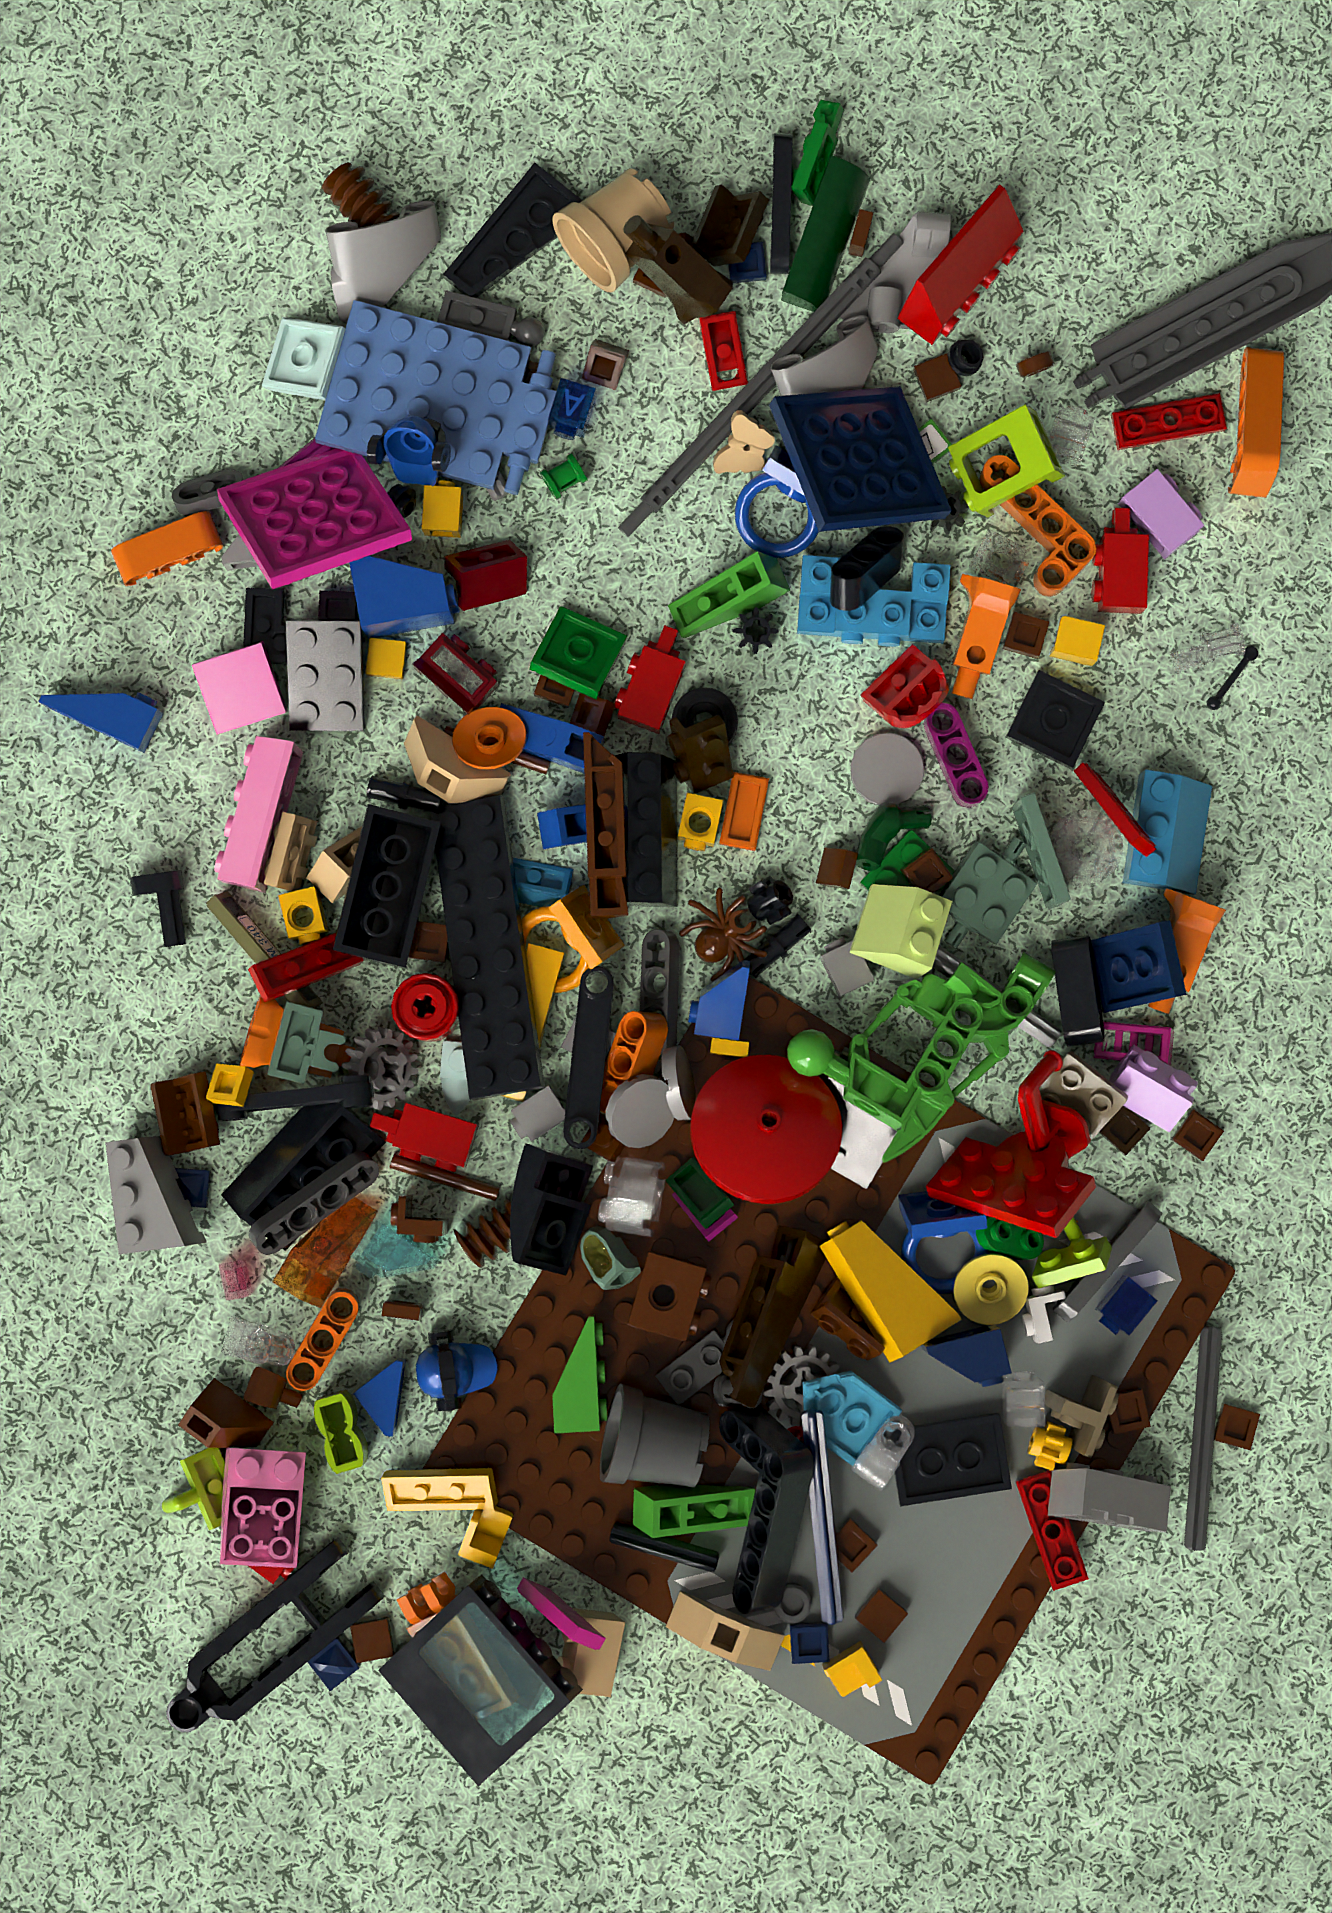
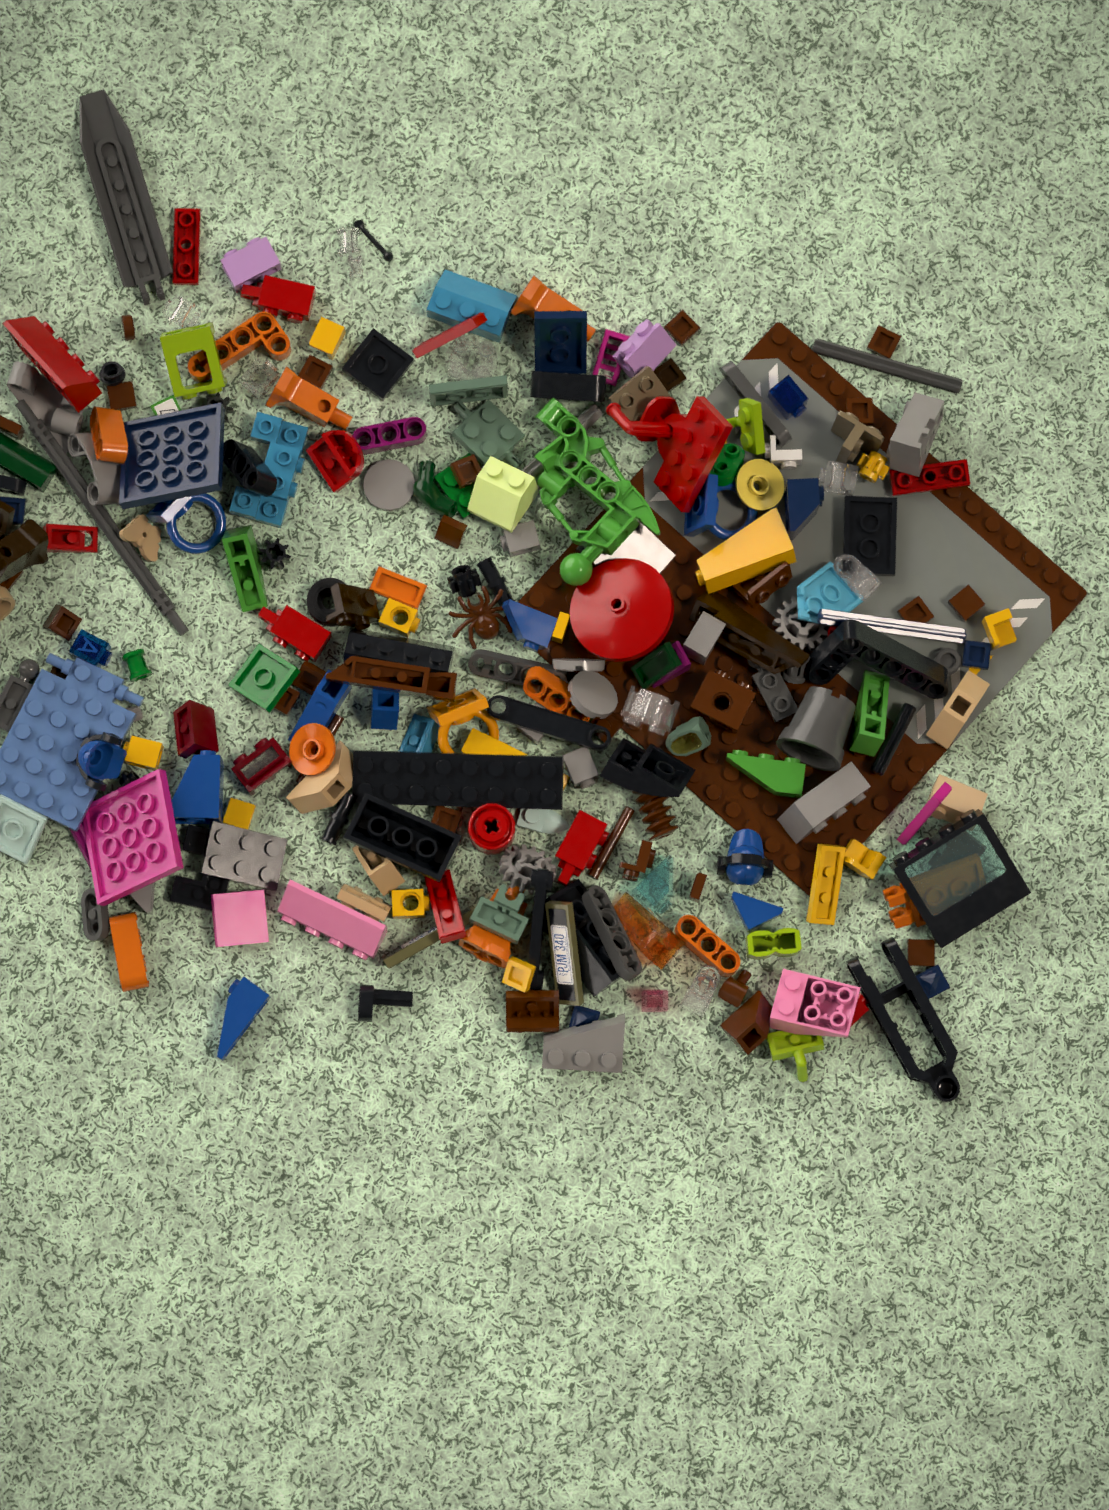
camera: 85 degrees left, 5 degrees down
(271, 1142) = (564, 952): none -> tile
(551, 1468) = (824, 802): none -> light grey wedge
(752, 1252) = (703, 638): none -> light grey slope
(873, 366) = (108, 435): none -> orange beam
(1258, 422) = (201, 185): orange beam -> none

